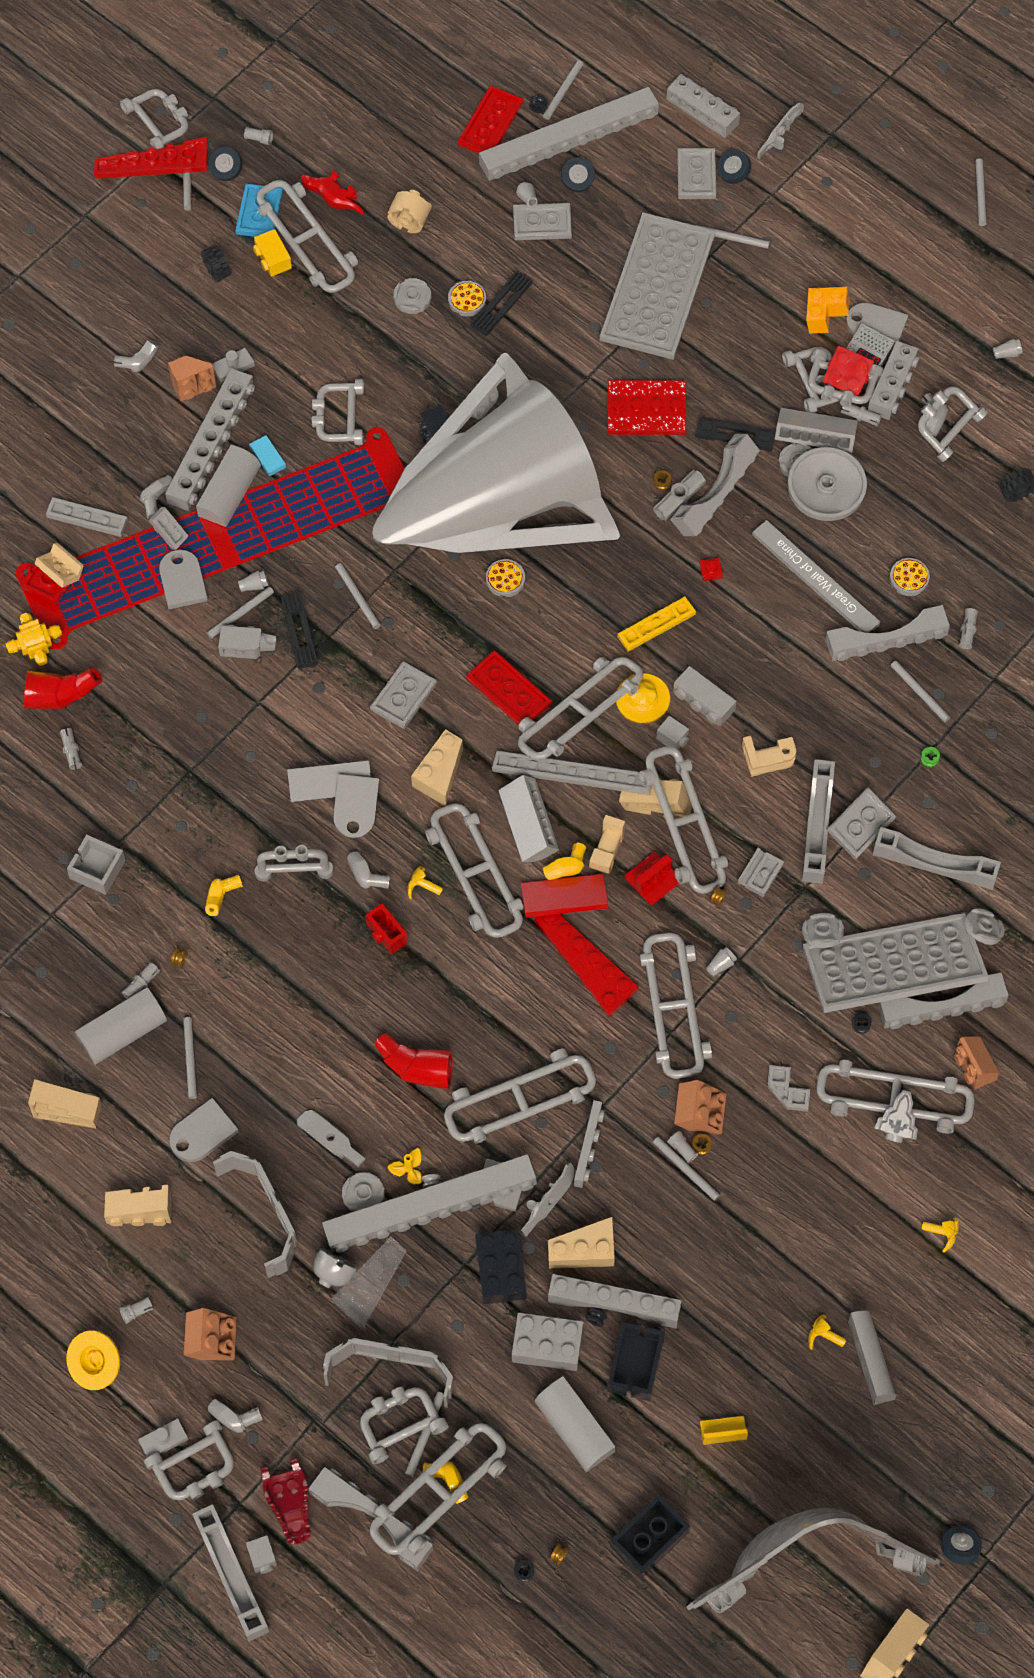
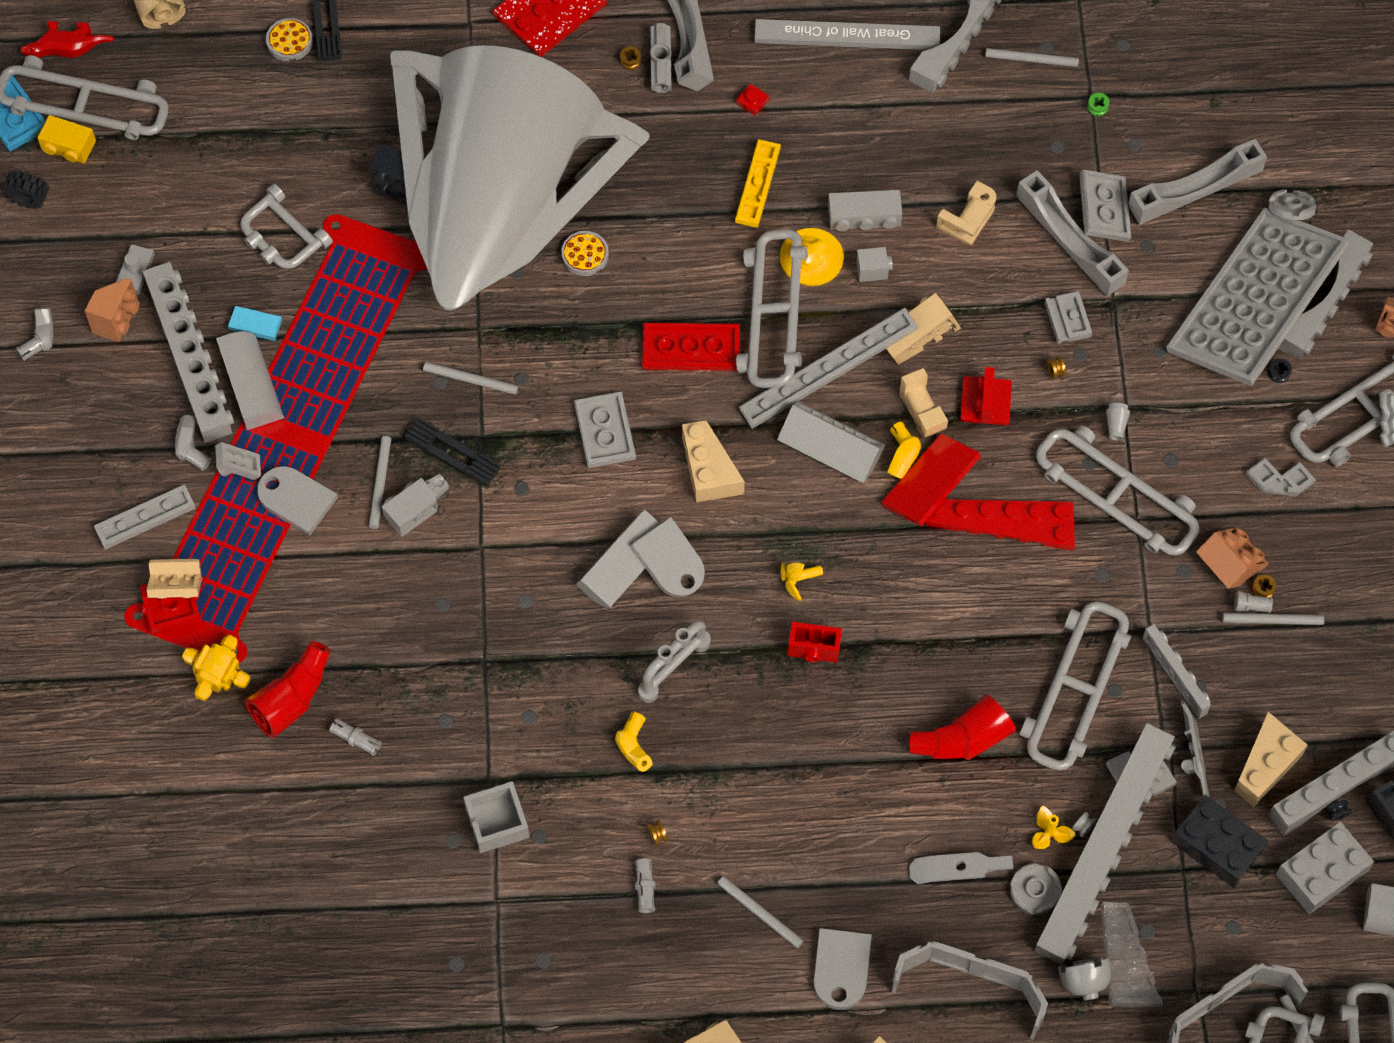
camera: 45 degrees left, 0 degrees up
(121, 1026) = (671, 940): light grey brick -> none
(255, 581) = (365, 443): light grey cone -> none
(363, 874) = (740, 613): light grey arm -> none
(412, 296) = (236, 76): light grey tile -> none
(479, 919) = (880, 565): light grey bar -> none
(684, 873) = (910, 311): light grey bar -> none
(823, 930) = (1170, 321): light grey tile -> none

